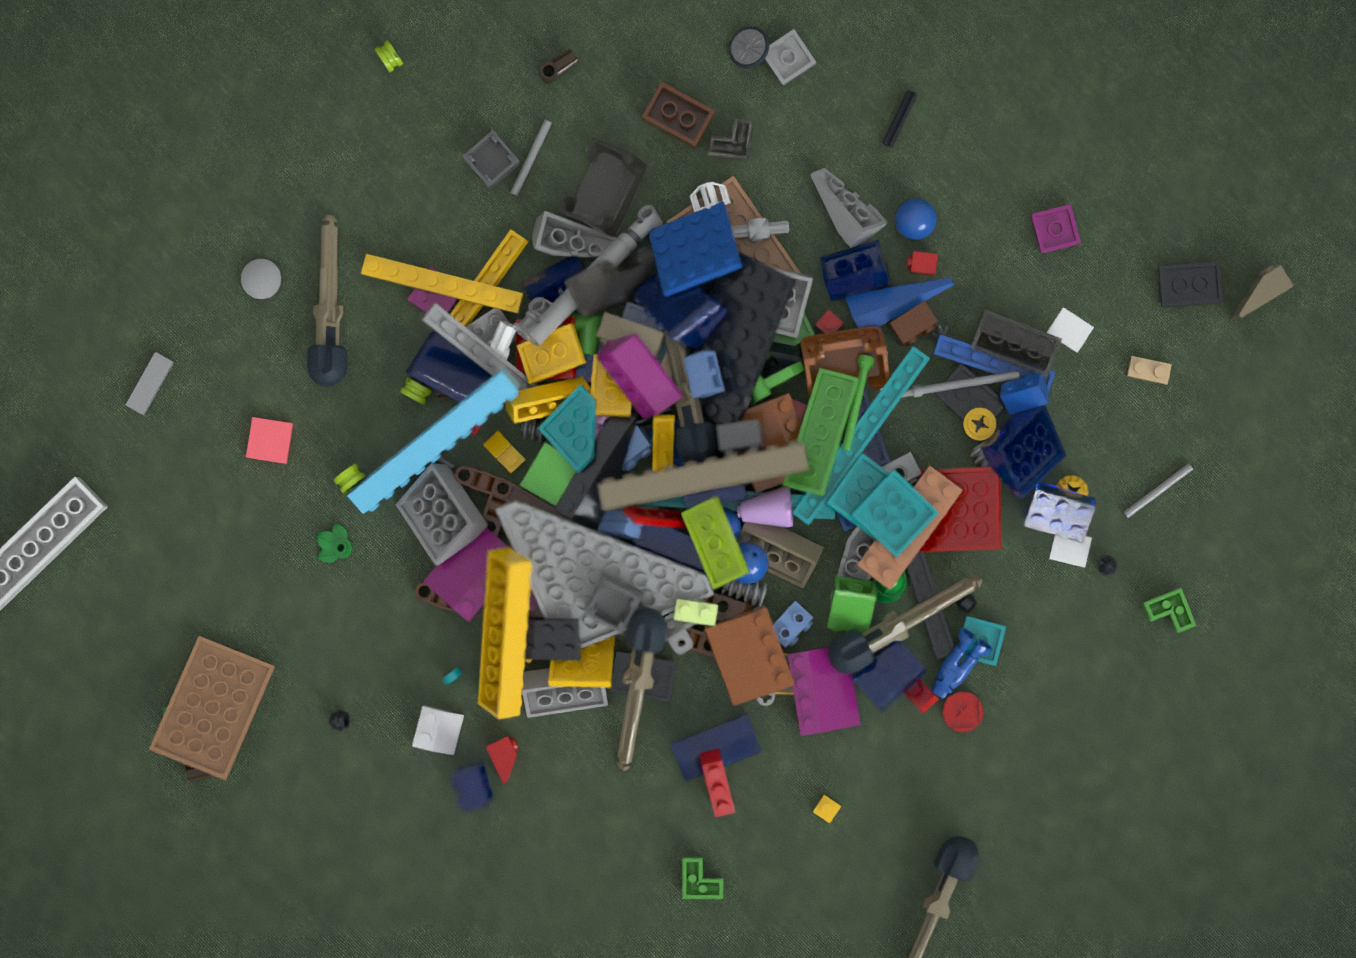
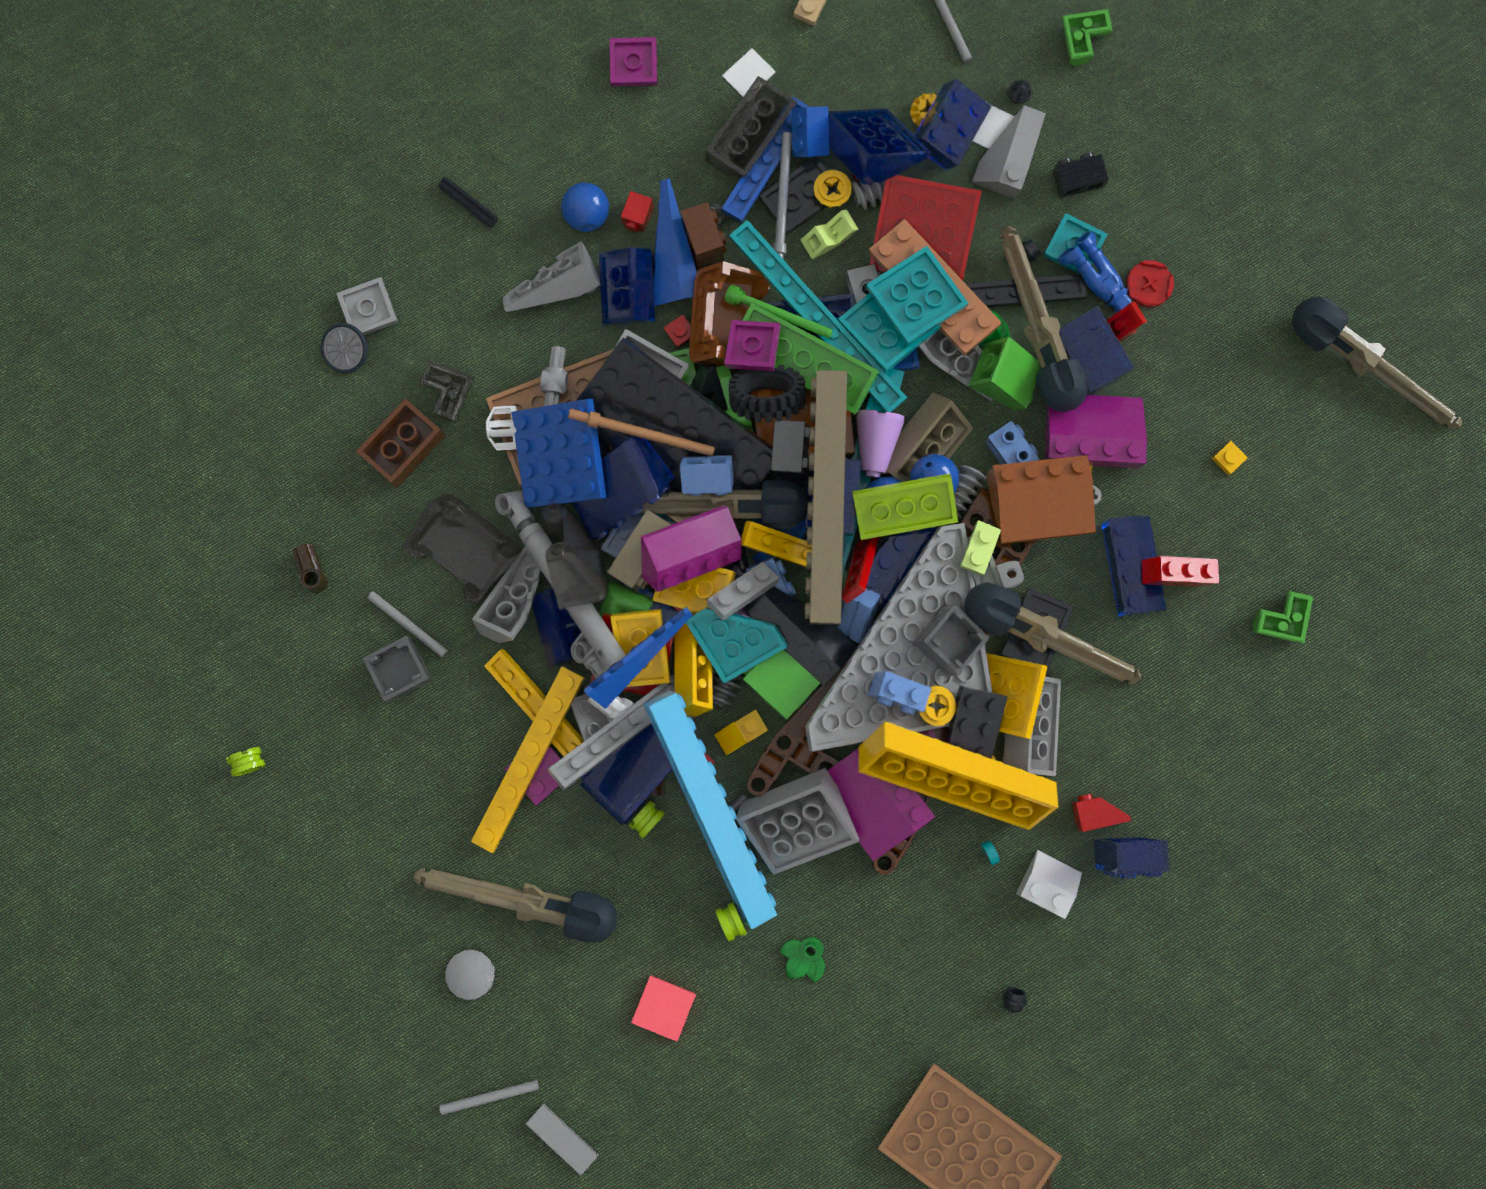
camera: 75 degrees left, 5 degrees down
(168, 317) = (489, 1097): none -> light grey bar
(517, 338) = (615, 679): none -> blue wedge
(551, 610) = (944, 714): none -> yellow gear
(560, 569) = (900, 692): none -> medium blue brick
(615, 425) = (742, 591): none -> light grey plate
(723, 273) = (594, 419): none -> medium nougat bar
(796, 402) = (767, 407): none -> black tyre
(820, 387) = (752, 345): none -> magenta plate
(941, 430) = (828, 236): none -> yellowish green slope
(1043, 632) = (1080, 174): none -> black brick
(1045, 568) = (1009, 158): none -> light grey wedge

